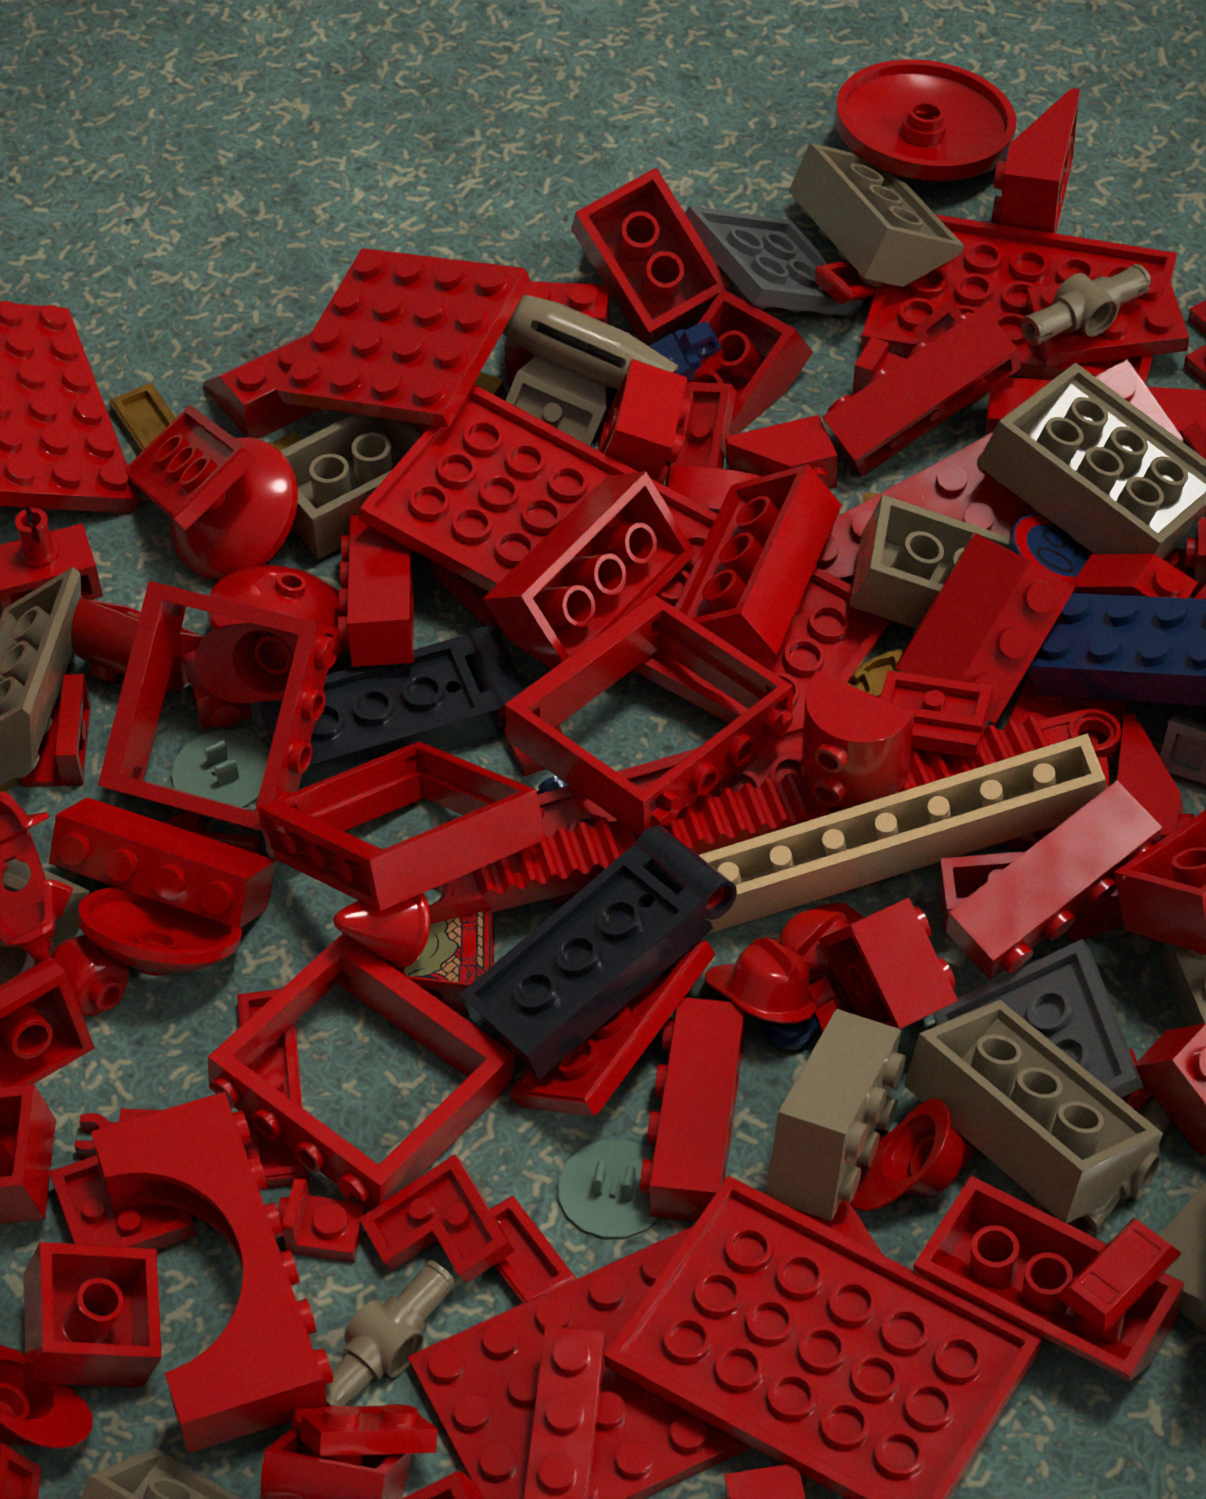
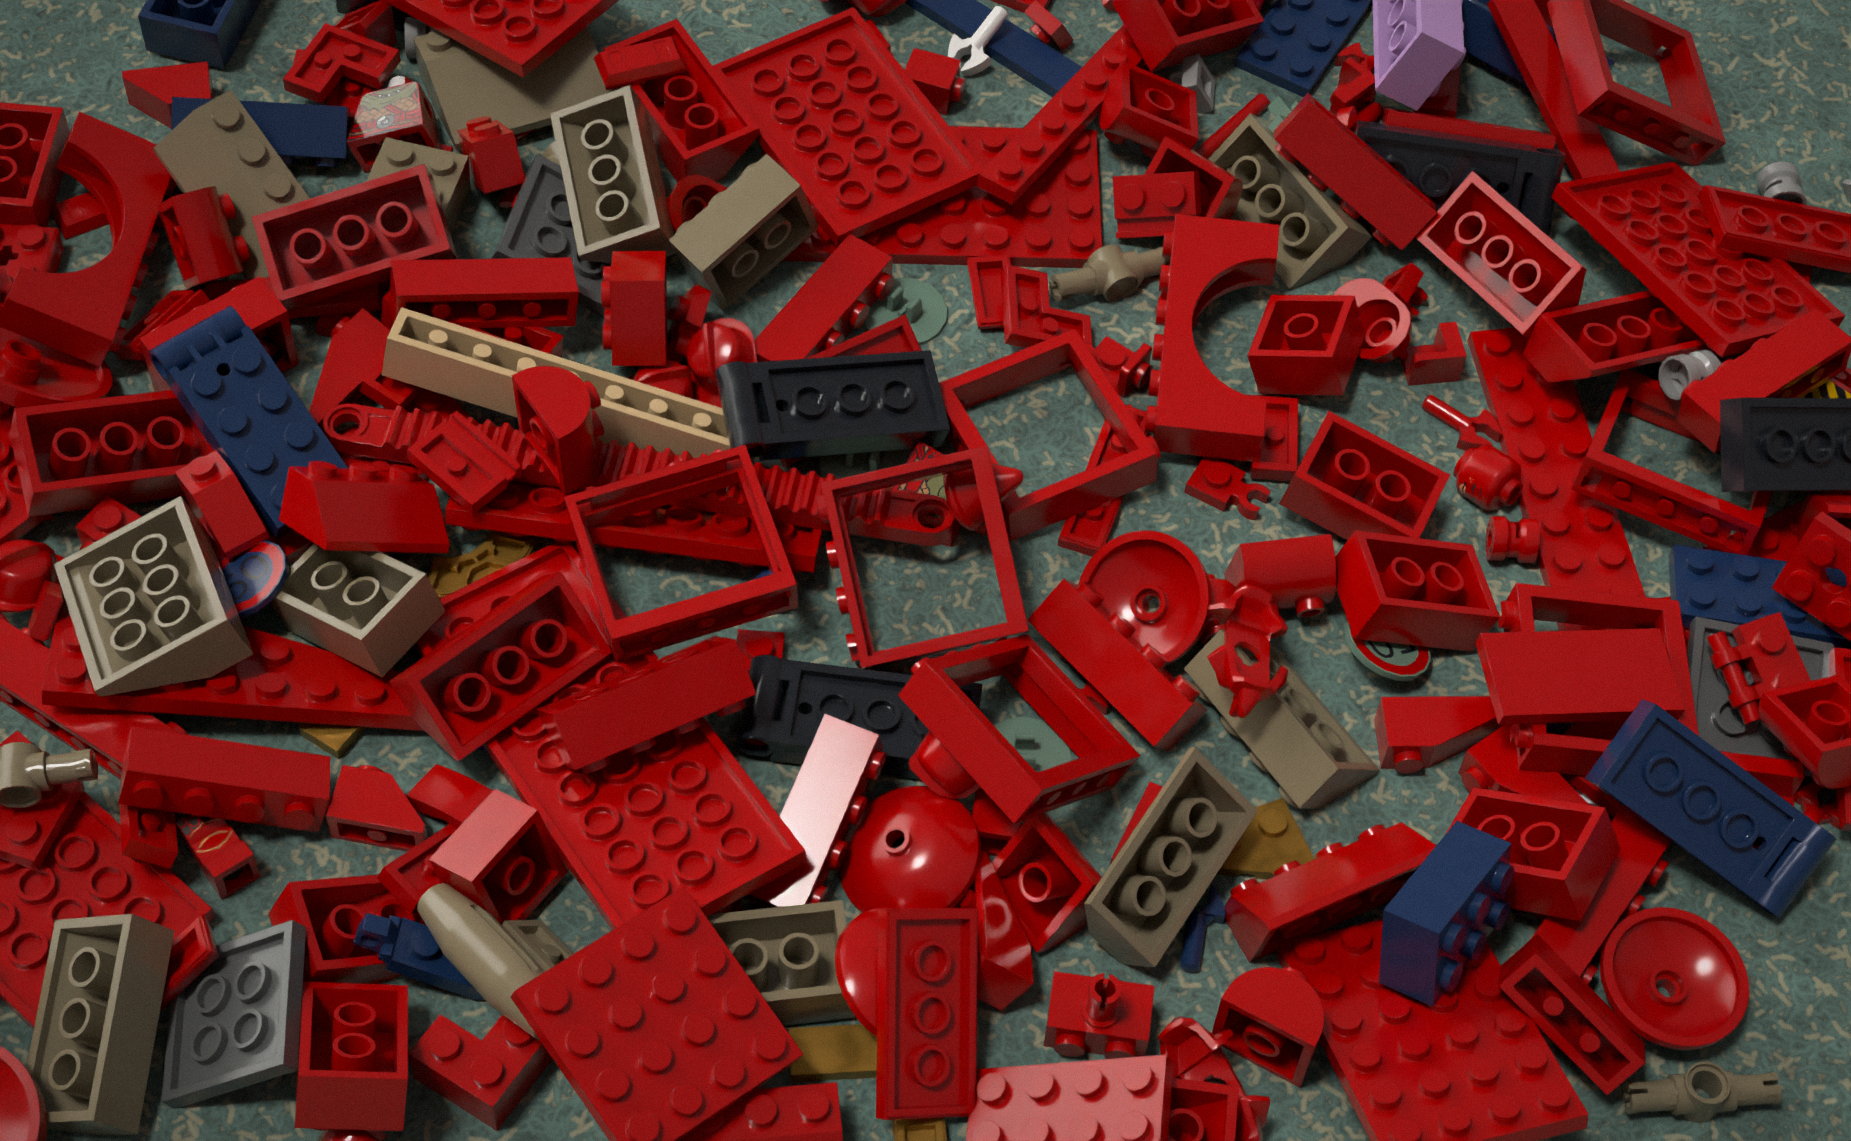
camera: 160 degrees left, 5 degrees up
(164, 554) = (1003, 947): none -> red slope

